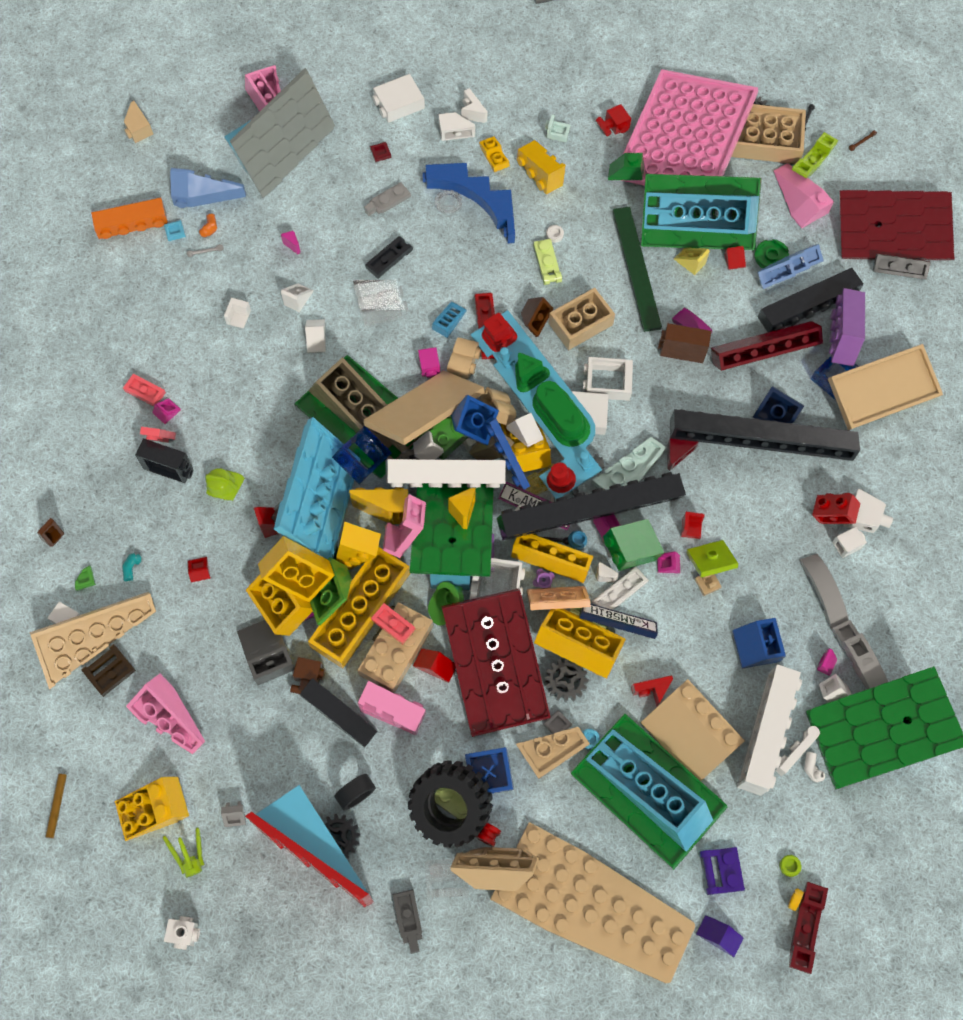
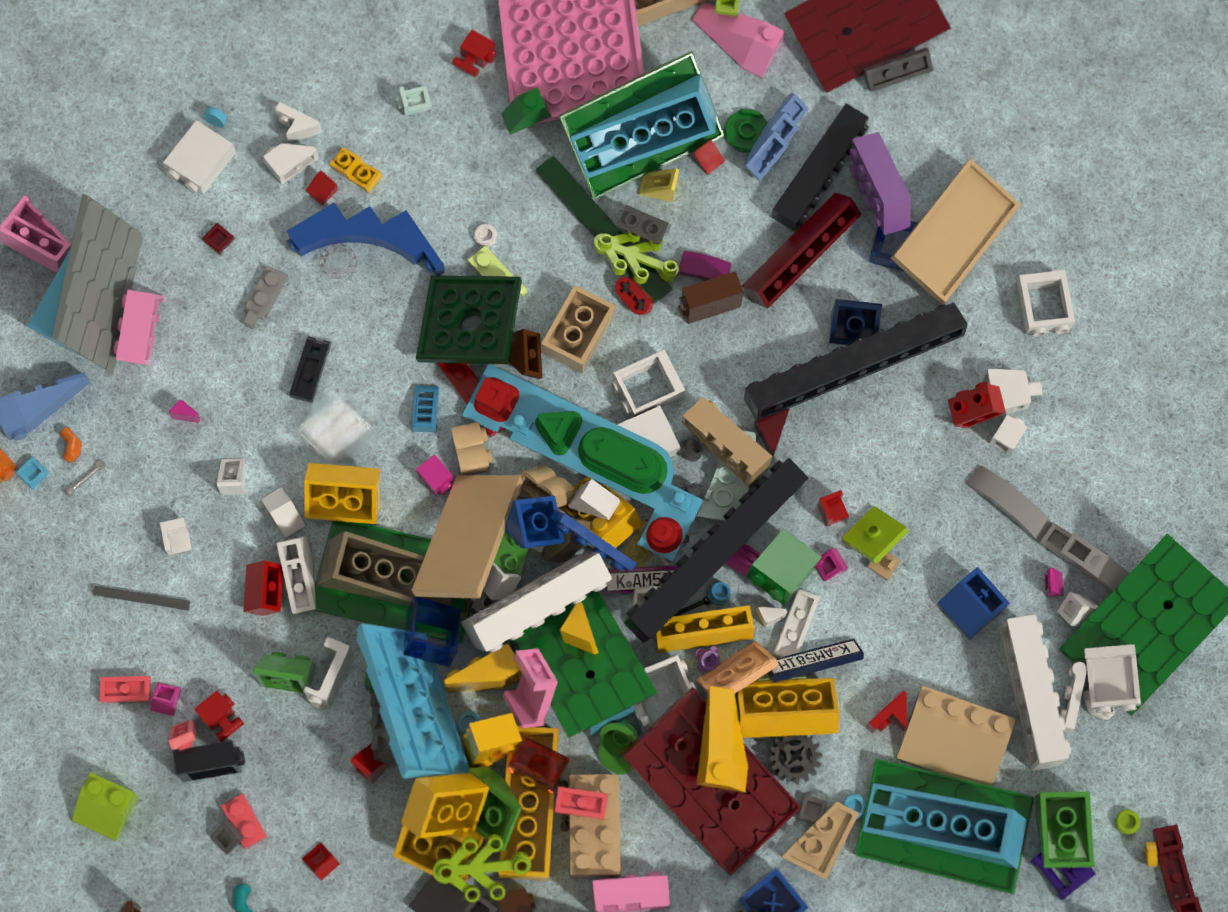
camera: 30 degrees left, 5 degrees up
(82, 455) = (104, 806): none -> lime slope
(147, 518) = (227, 836): none -> flat silver tile
(165, 515) = (244, 819): none -> coral plate
(189, 338) = (141, 598): none -> dark grey bar
(191, 435) = (216, 711): none -> red brick
(223, 483) = (287, 748): lime piece -> none
(250, 432) = (284, 673): none -> bright green slope
(271, 373) = (263, 588): none -> red brick
(279, 452) = (342, 659): none -> white panel
(294, 626) = (478, 868): none -> lime plant
(296, 174) = (137, 326): none -> bright pink wedge
(301, 374) = (298, 573): none -> white slope
(359, 339) = (342, 493): none -> yellow brick
(379, 581) = (538, 765): none -> clear red slope
(423, 80) = (215, 117): none -> medium azure tile
(435, 664) = (645, 819): red slope -> none
(465, 153) = (322, 188): none -> red slope
(506, 262) = (454, 300): none -> dark green piece
(515, 642) = (722, 747): none -> yellow wedge
(541, 167) = (422, 160): yellow wedge -> none
(613, 435) = (691, 450): none -> dark grey plate
(632, 277) = (610, 245): none -> lime plant
(636, 317) = (629, 299): none -> red beam
(641, 440) = (727, 441): none -> tan wedge
(666, 276) = (643, 224): none -> dark grey bracket
(738, 842) = (1065, 829): none -> bright green slope
(836, 751) = (1113, 678): none -> white panel
(932, 452) = (1045, 280): none -> white window

